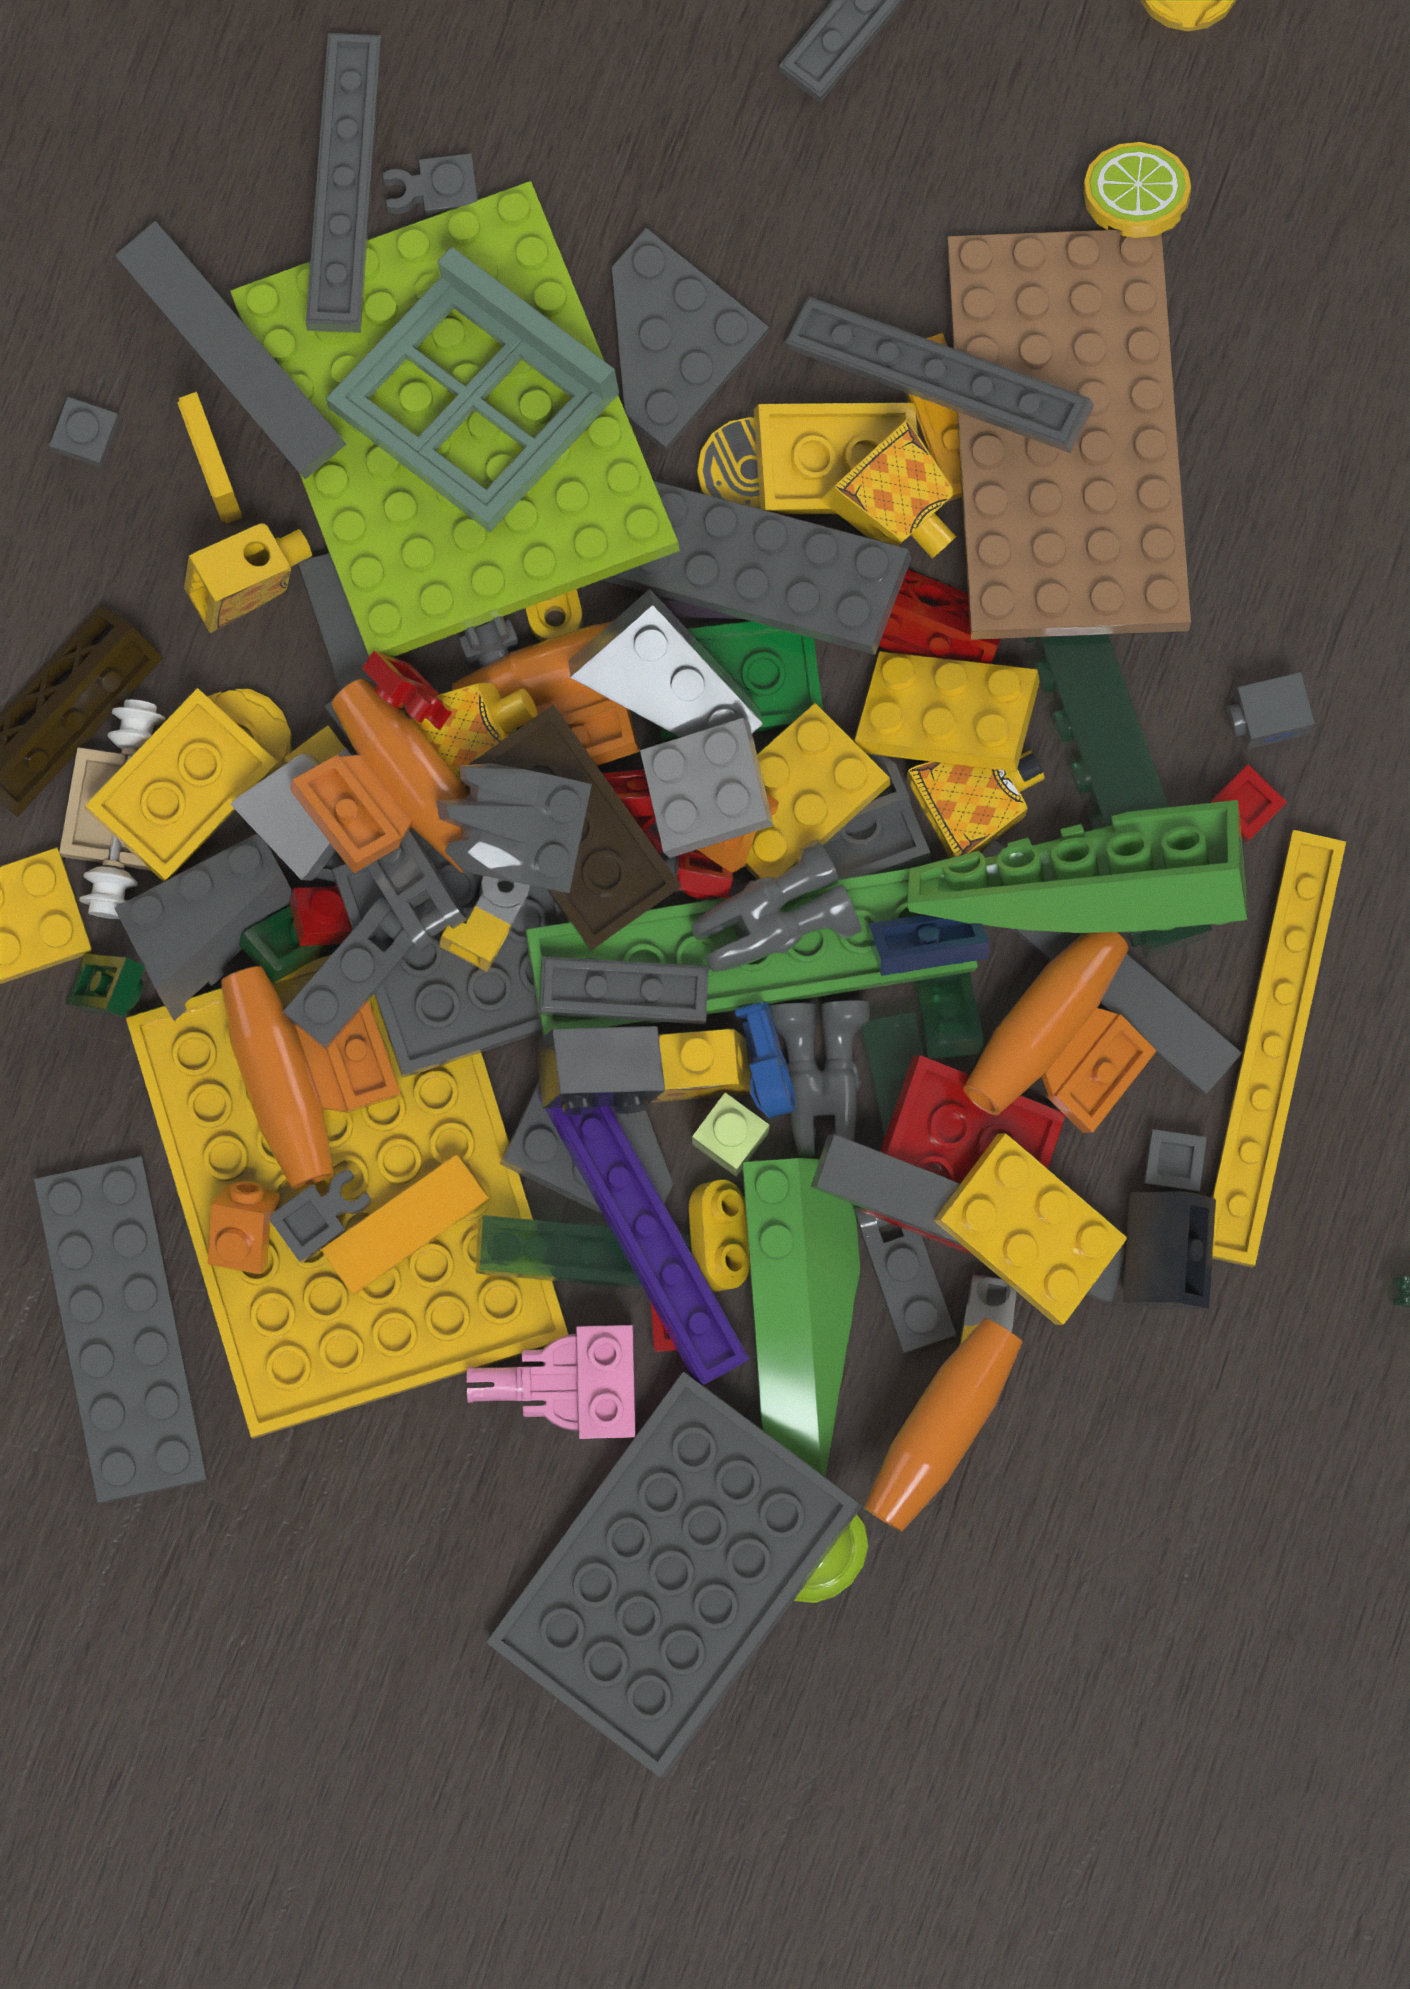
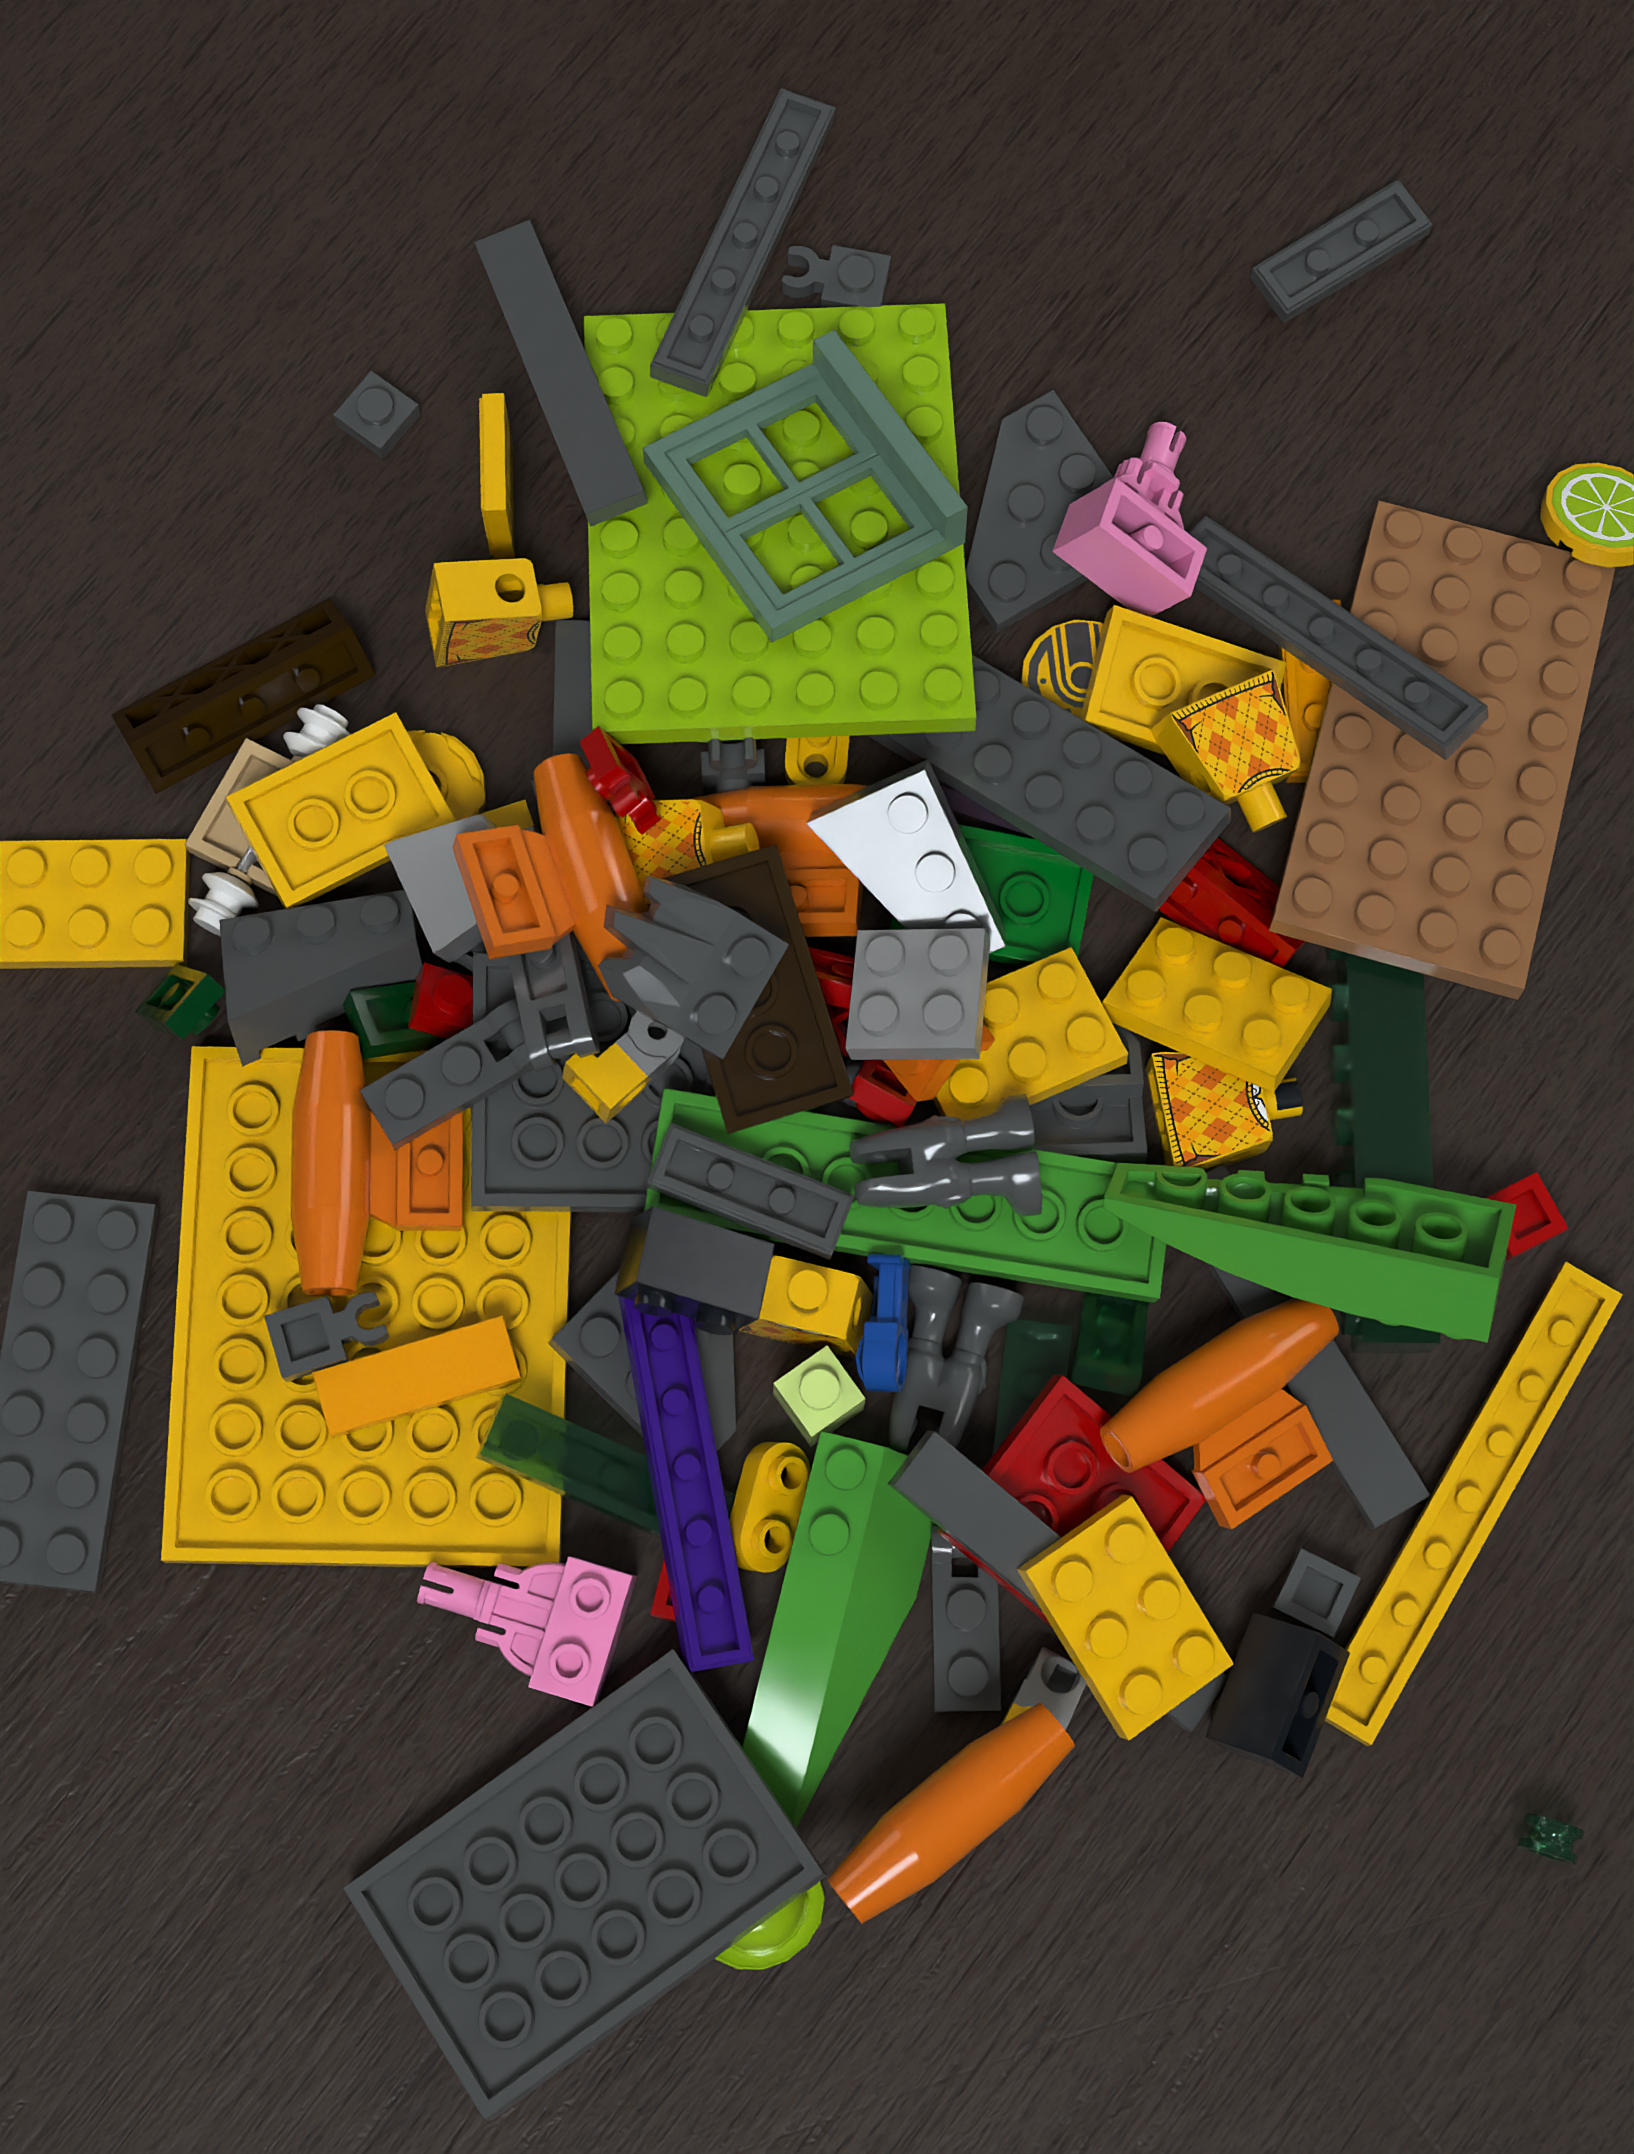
camera: 15 degrees right, 5 degrees down
(241, 1226) = (232, 1317): orange bracket -> none
(752, 333) = (1132, 532): none -> bright pink brick
(925, 943) = (1110, 1251): dark blue plate -> none
(1271, 711) = (1580, 1122): dark grey brick -> none

